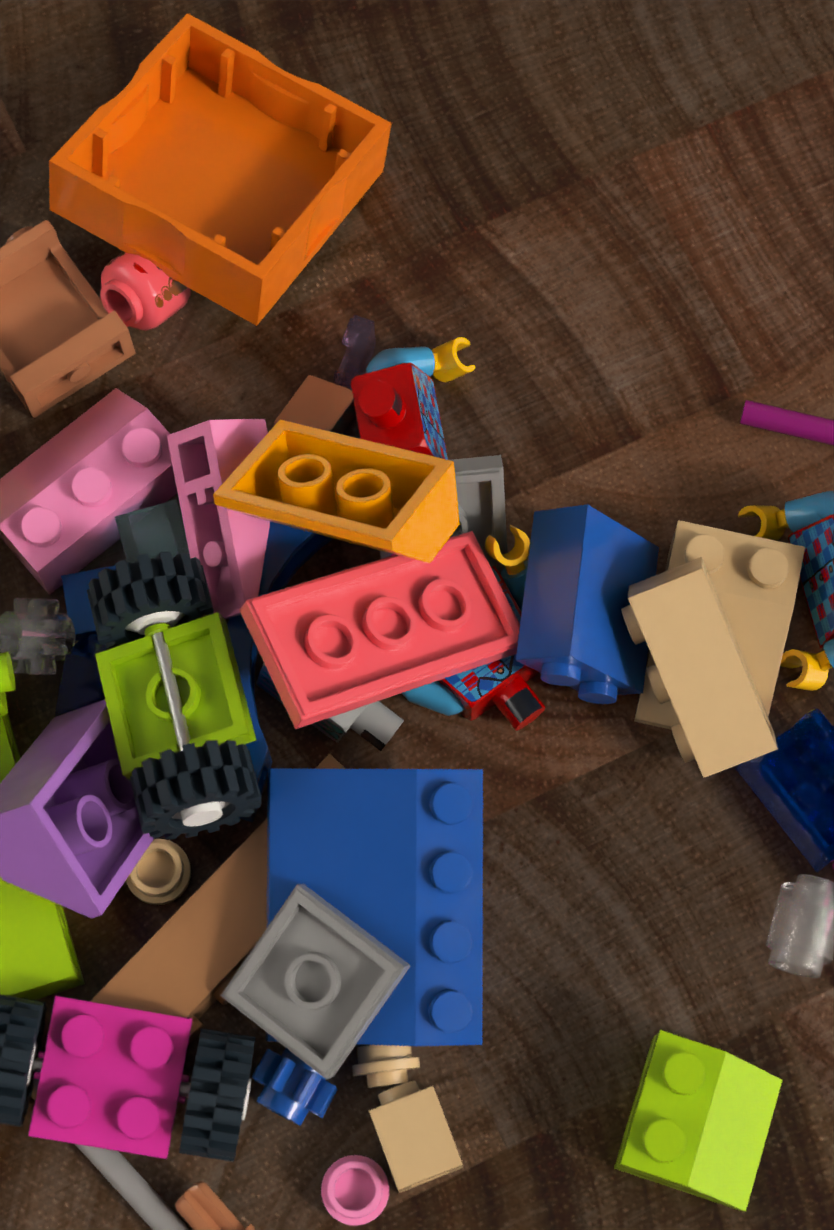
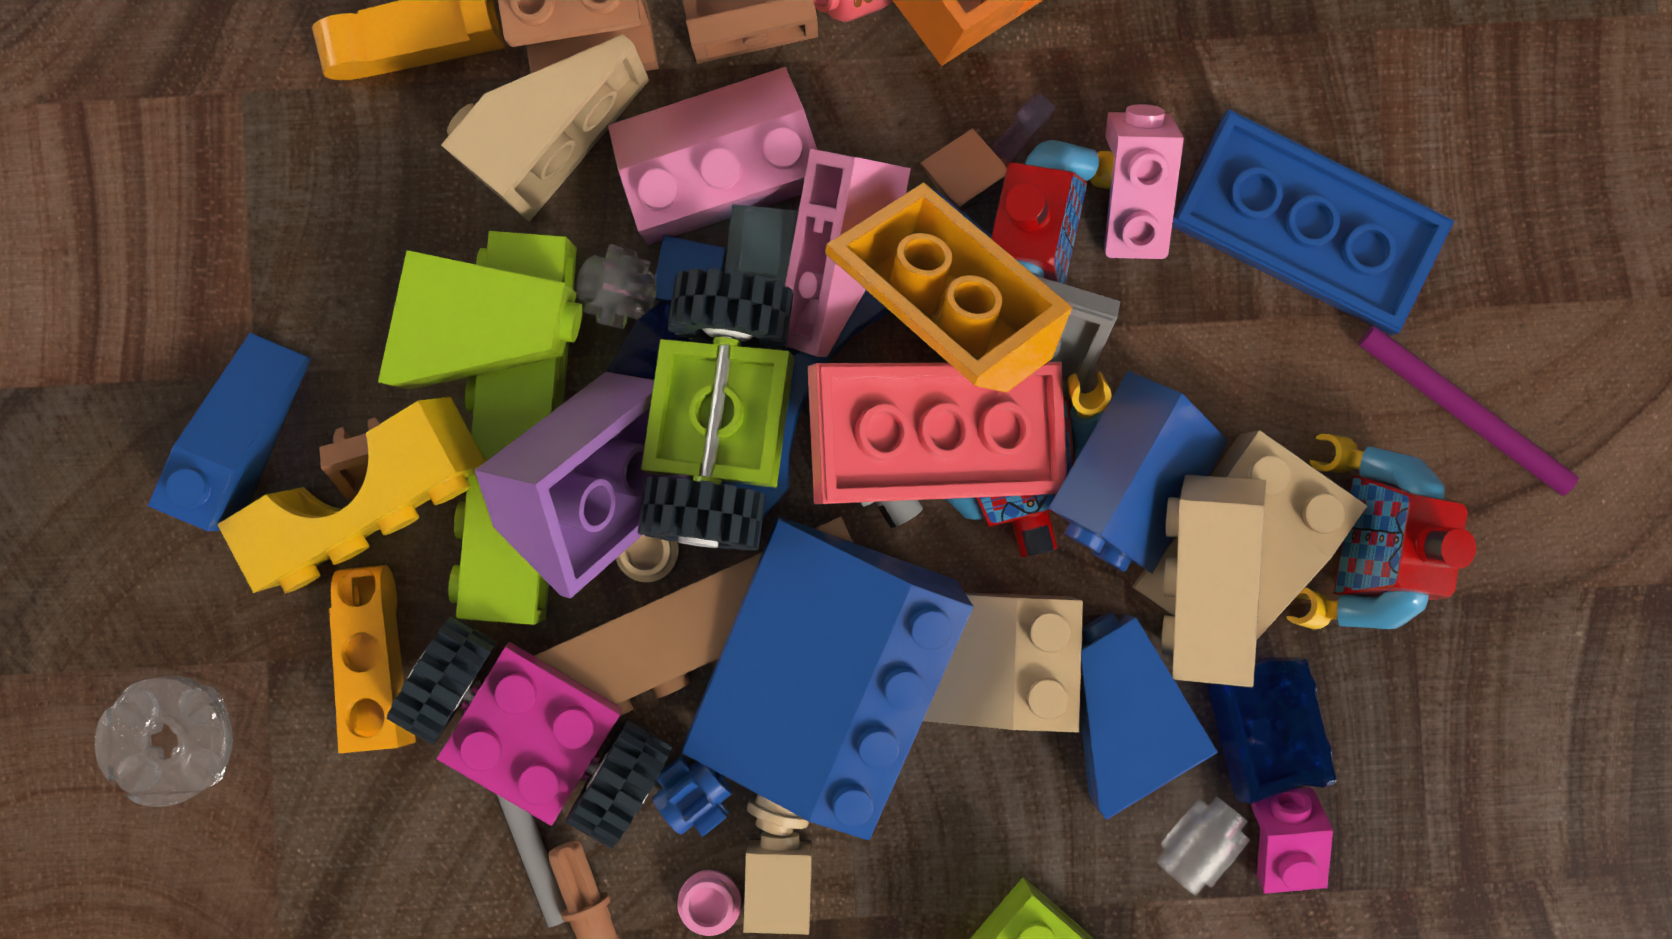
camera: 25 degrees right, 15 degrees up
(315, 981) = (743, 726): light grey tile -> none
(481, 360) = (1143, 181): none -> bright pink bracket
(548, 830) = (1014, 665): none -> tan slope
(648, 336) = (1311, 222): none -> blue tile
(681, 830) = (1132, 716): none -> blue slope

